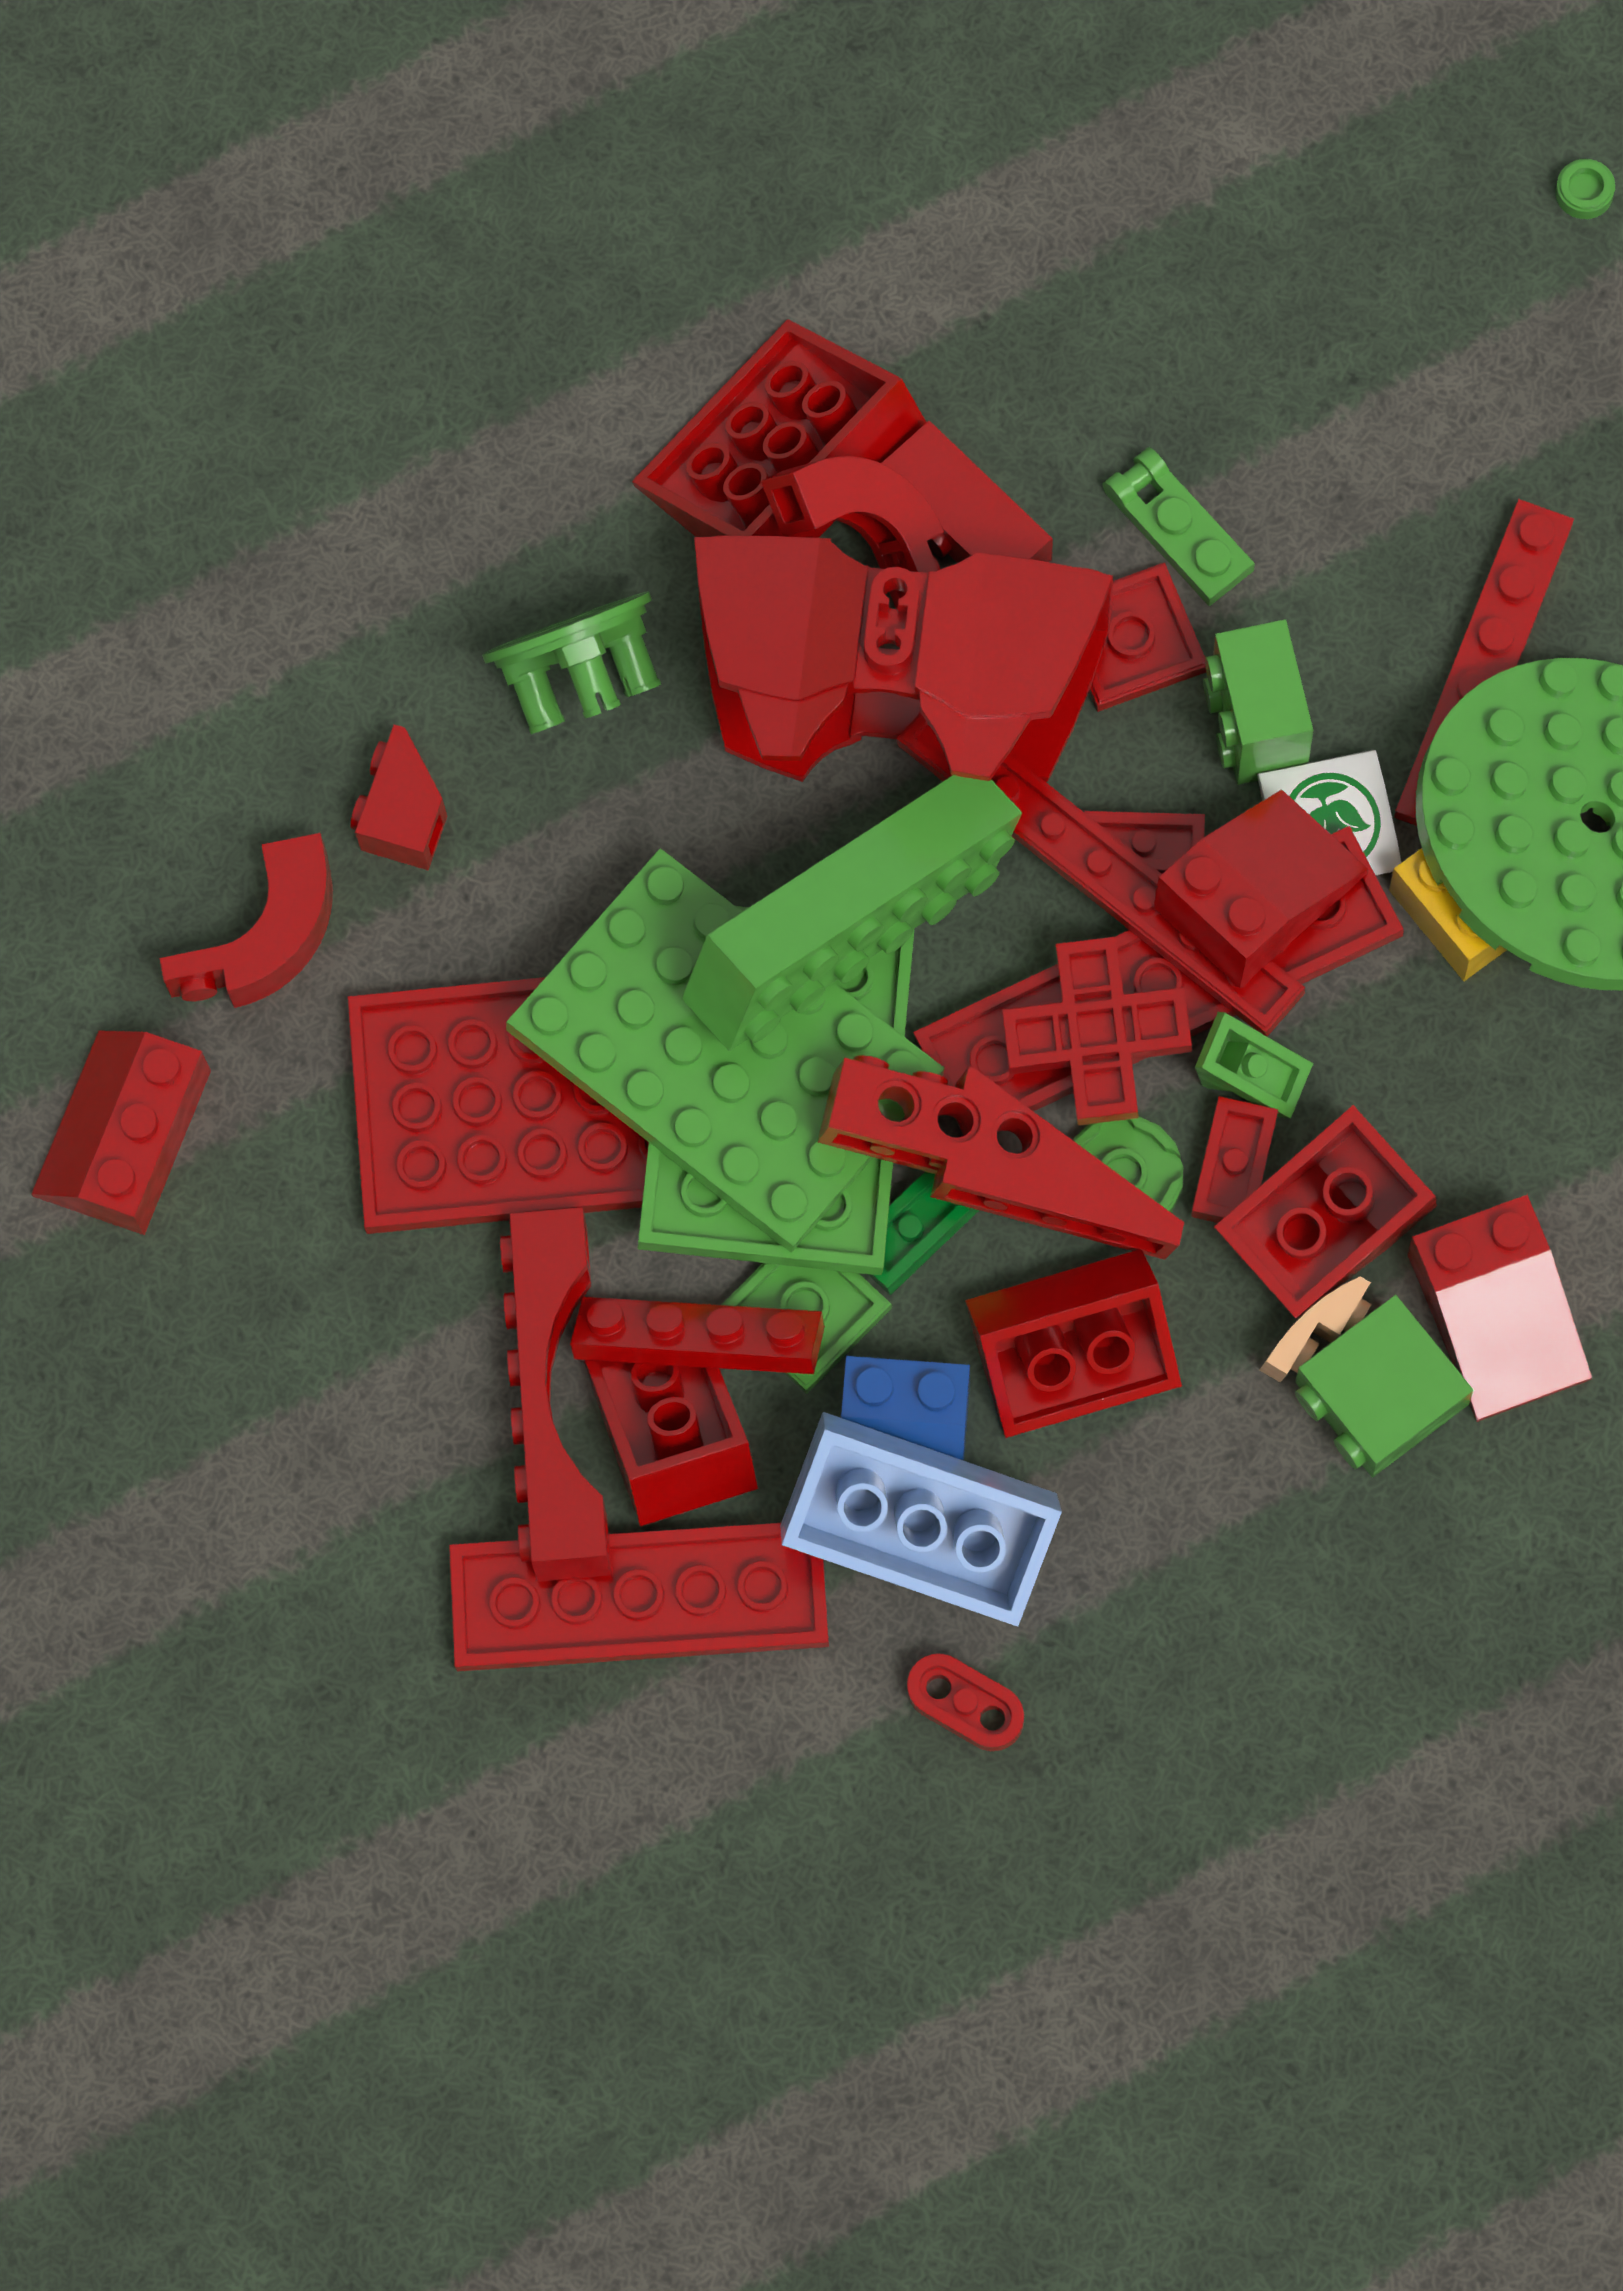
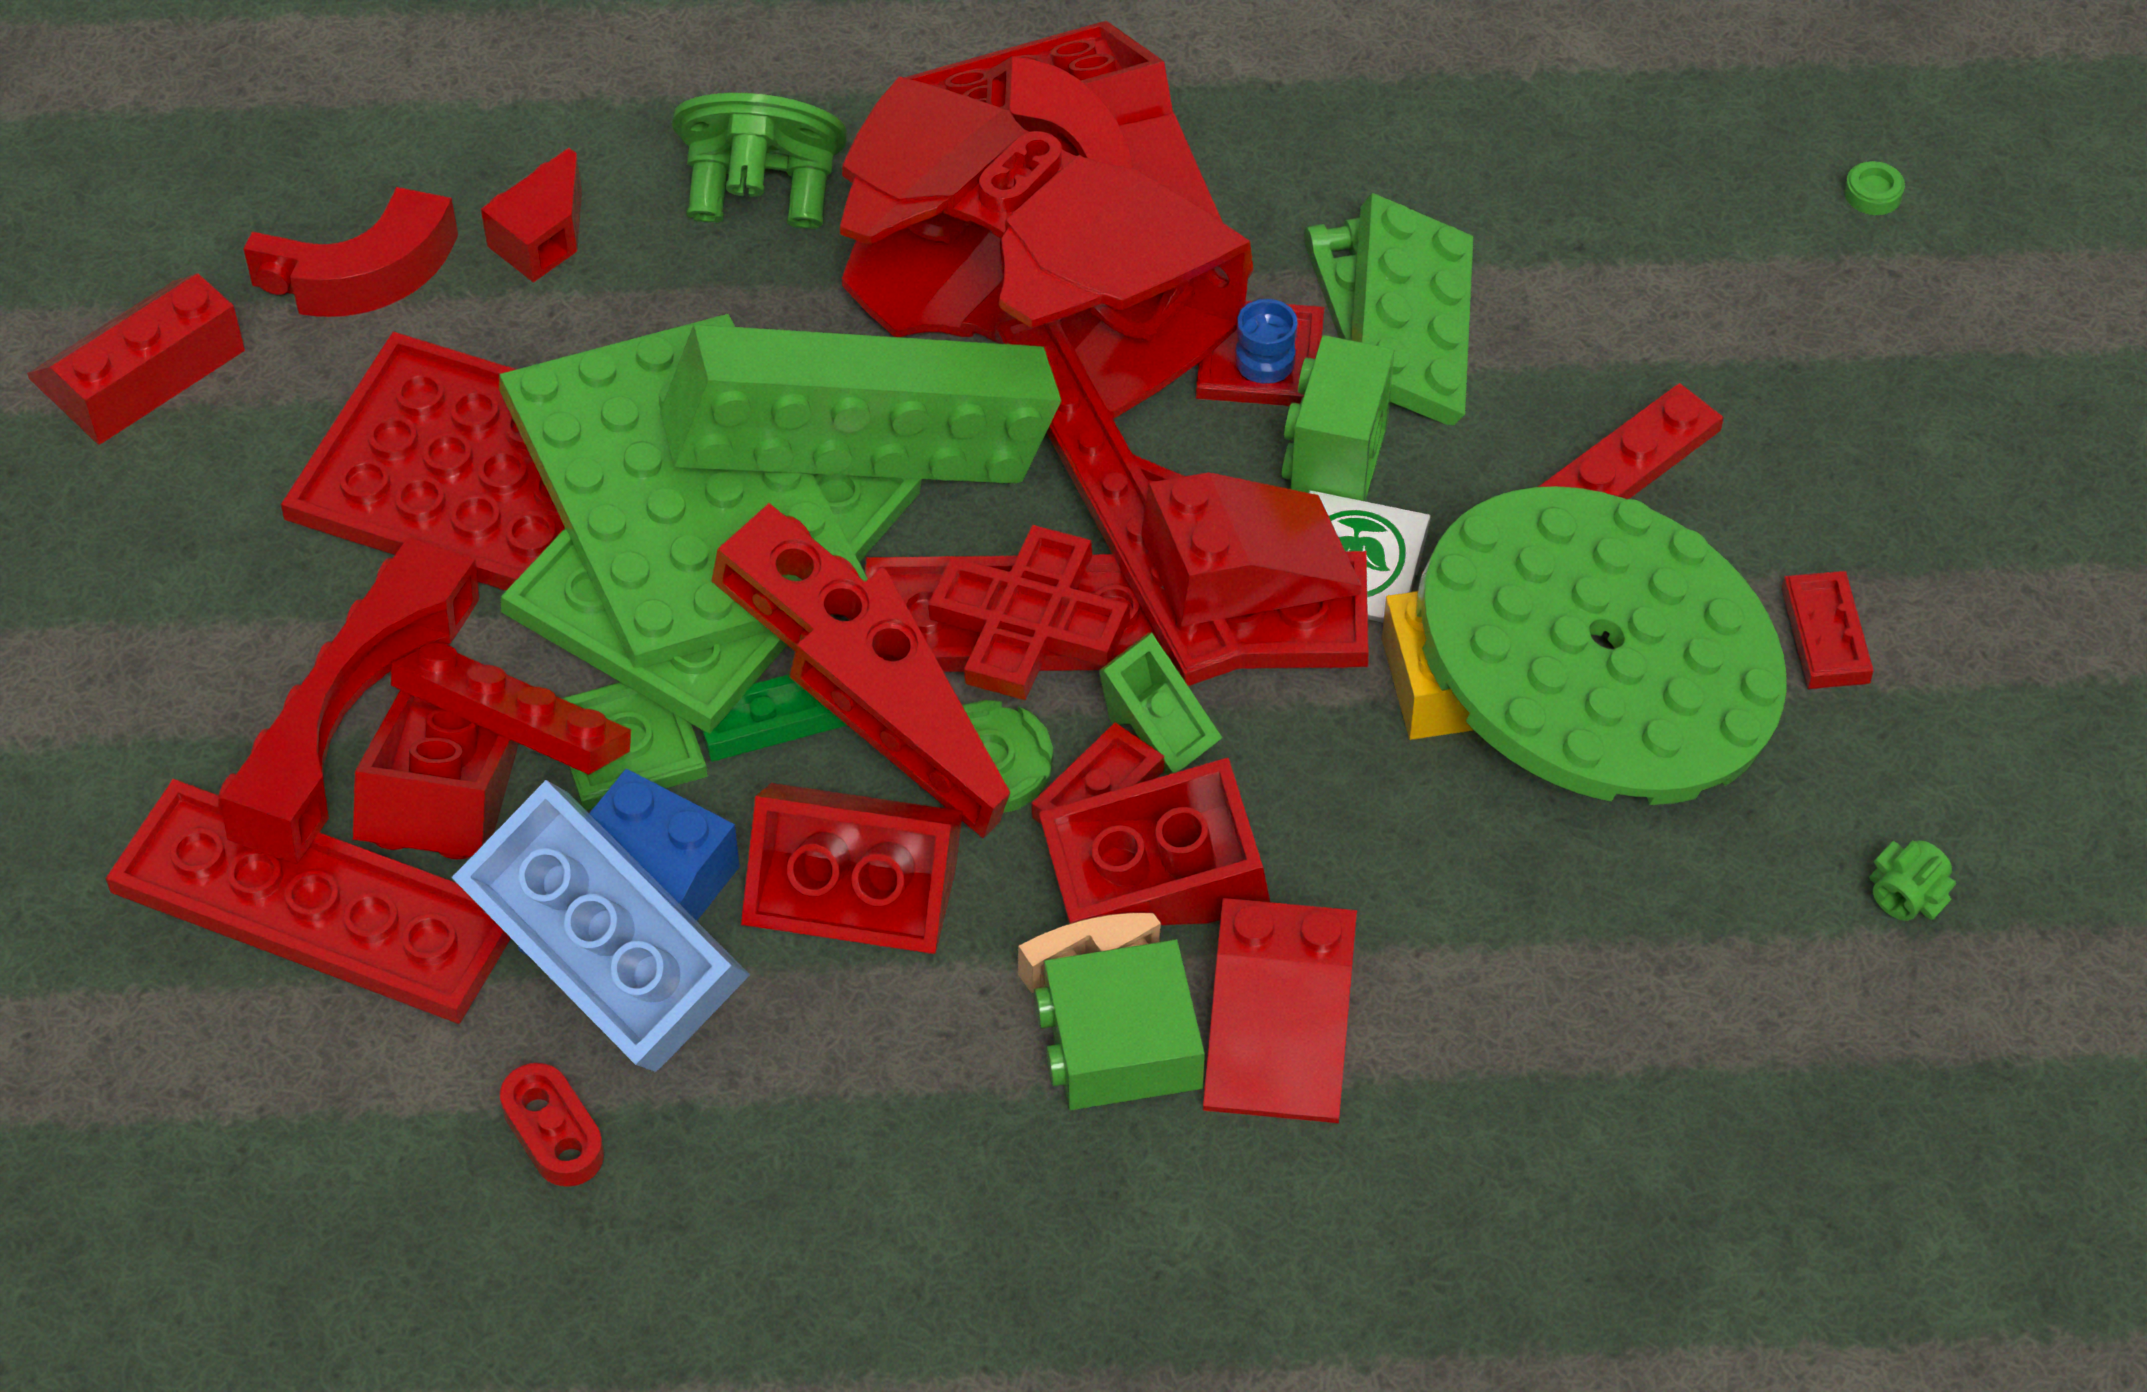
camera: 20 degrees right, 20 degrees down
(1145, 625) = (1266, 341): none -> blue wheel
(1248, 529) = (1417, 301): none -> bright green plate

